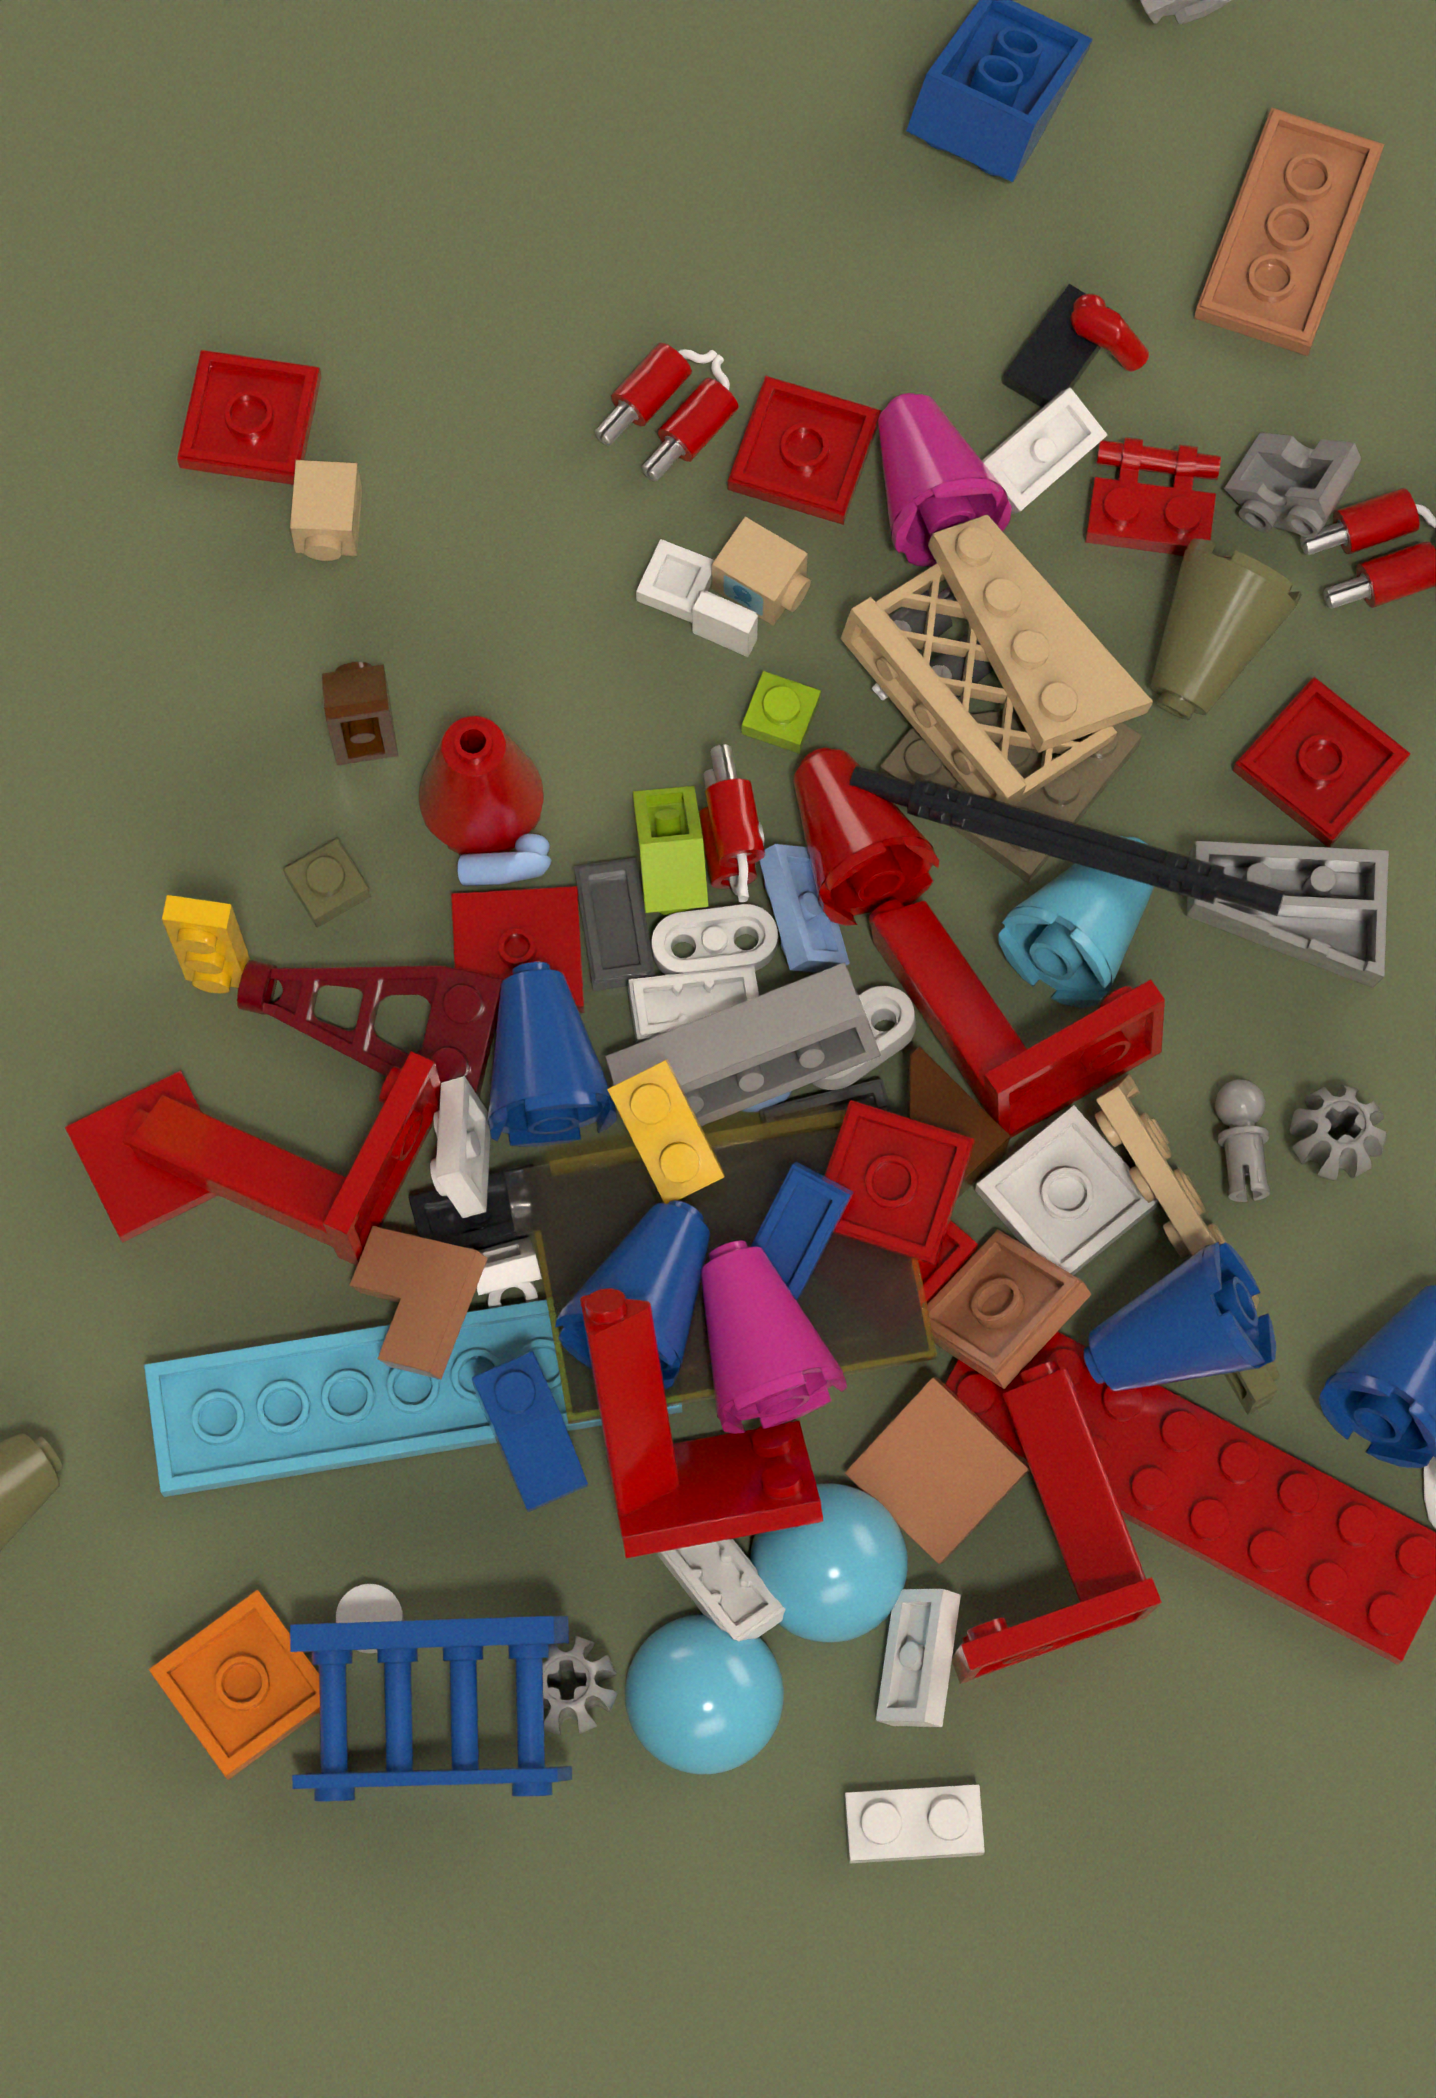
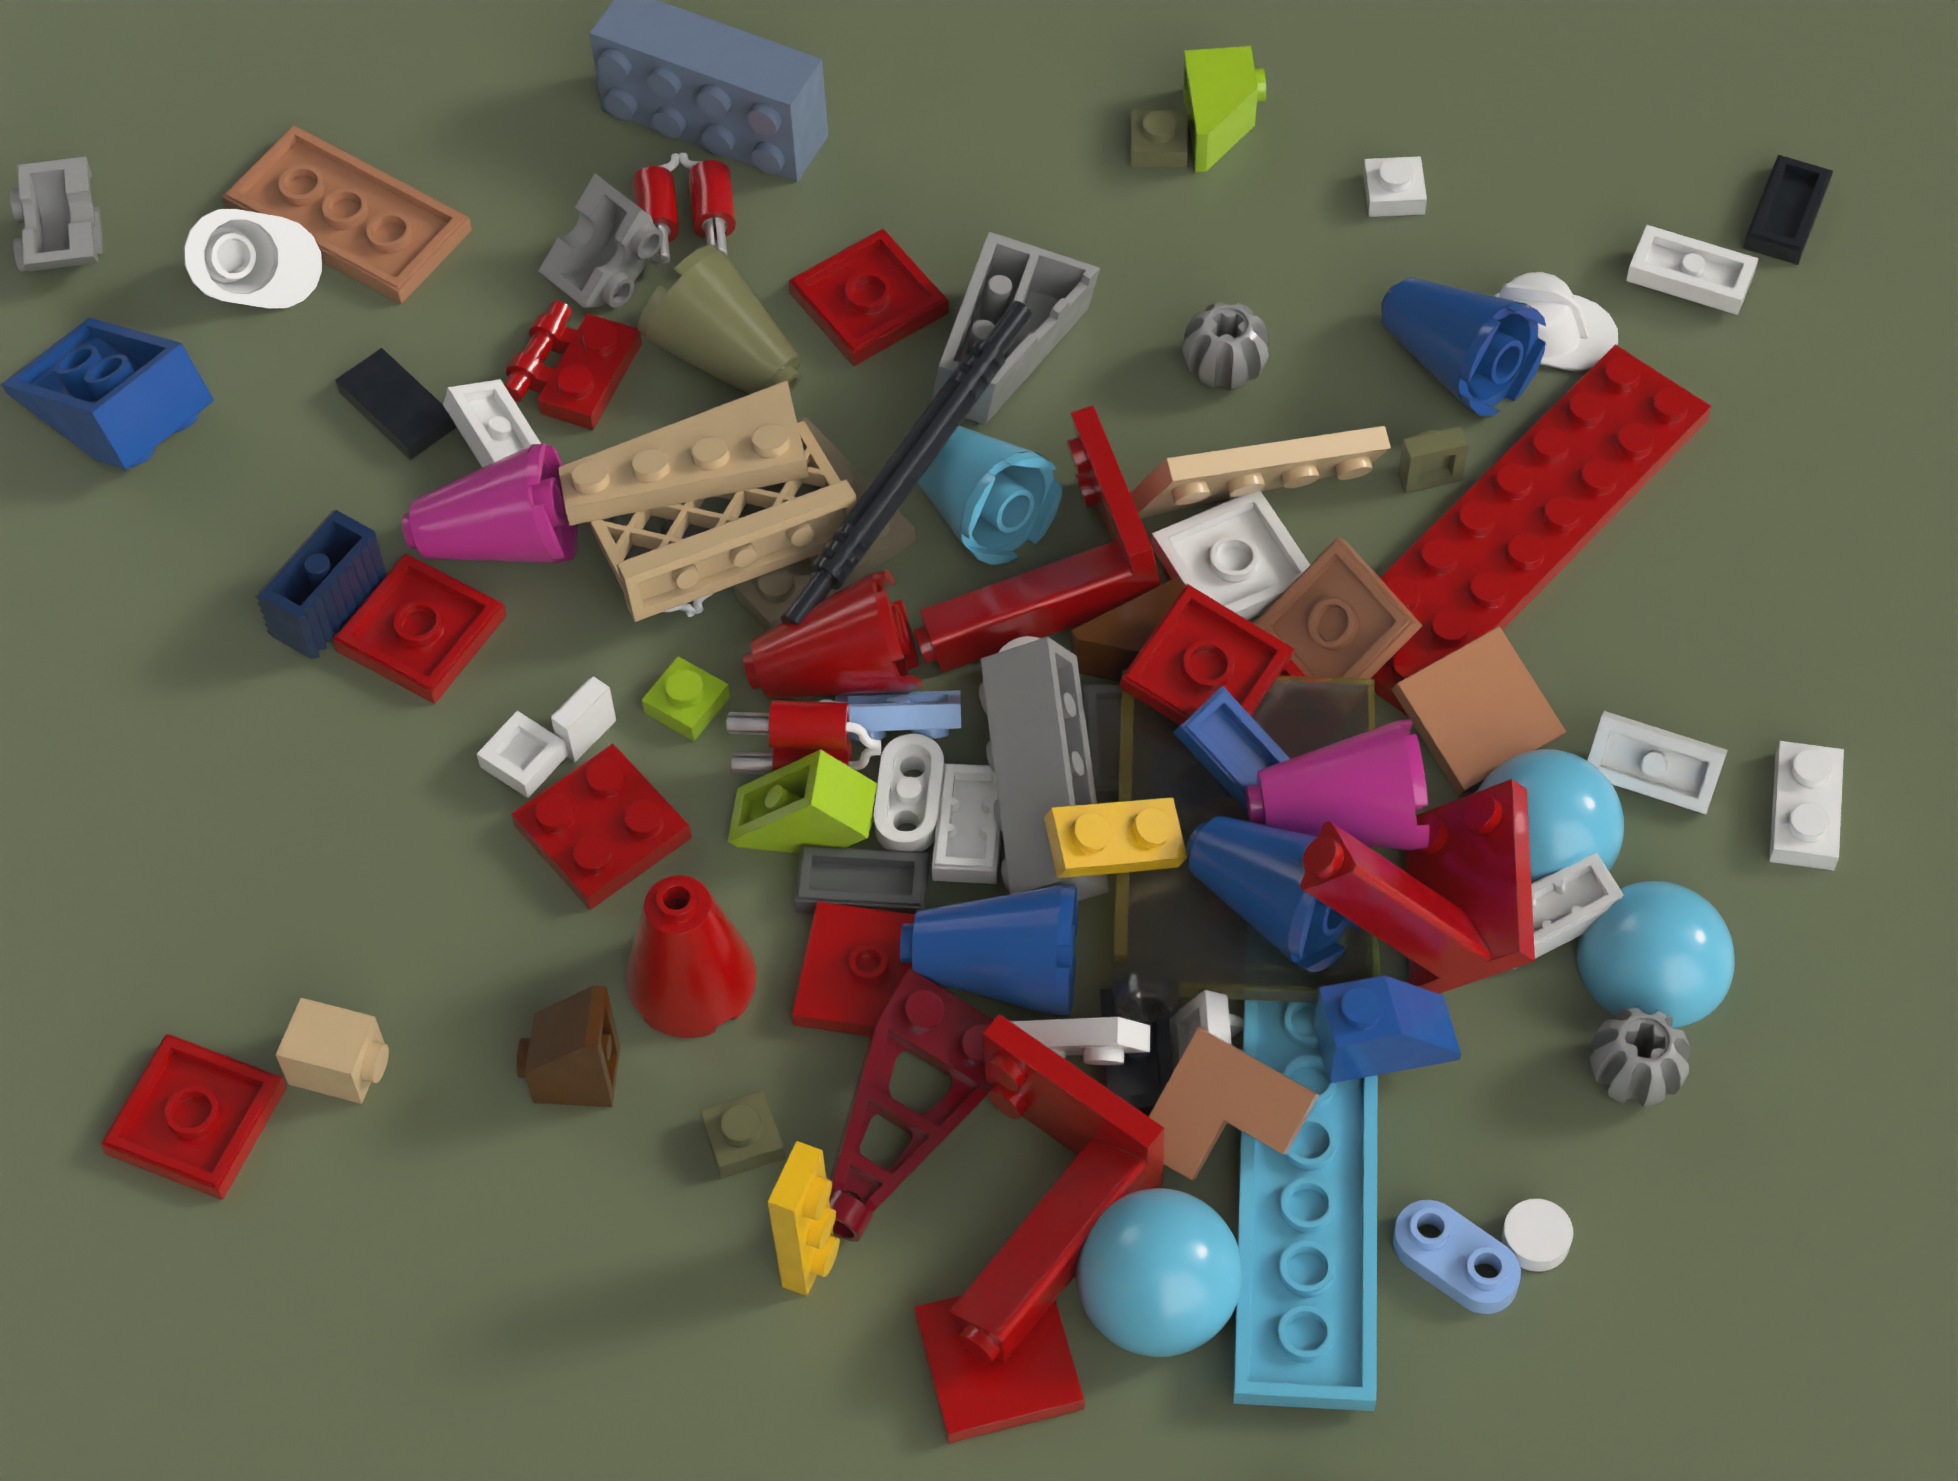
camera: 75 degrees left, 15 degrees down
(240, 1272) = (1159, 1273): none -> medium azure piece
(240, 1684) = (1591, 1363): orange plate -> none
(334, 1545) = (1451, 1257): none -> light blue plate
(397, 1647) = (1584, 1189): blue fence -> none
(501, 868) = (778, 964): light blue arm -> none
(621, 674) = (601, 826): none -> red plate
(652, 386) = (311, 742): red piece -> none
(761, 572) = (538, 674): tan brick -> none
(810, 345) = (322, 584): none -> dark blue brick
(1085, 1525) = (1619, 580): red piece -> none
(1109, 331) = (396, 354): red arm -> none
(1185, 159) = (252, 258): none -> white piece
(1185, 1326) = (1399, 467): blue cone -> none
(1241, 1107) = (1180, 418): light grey pin -> none

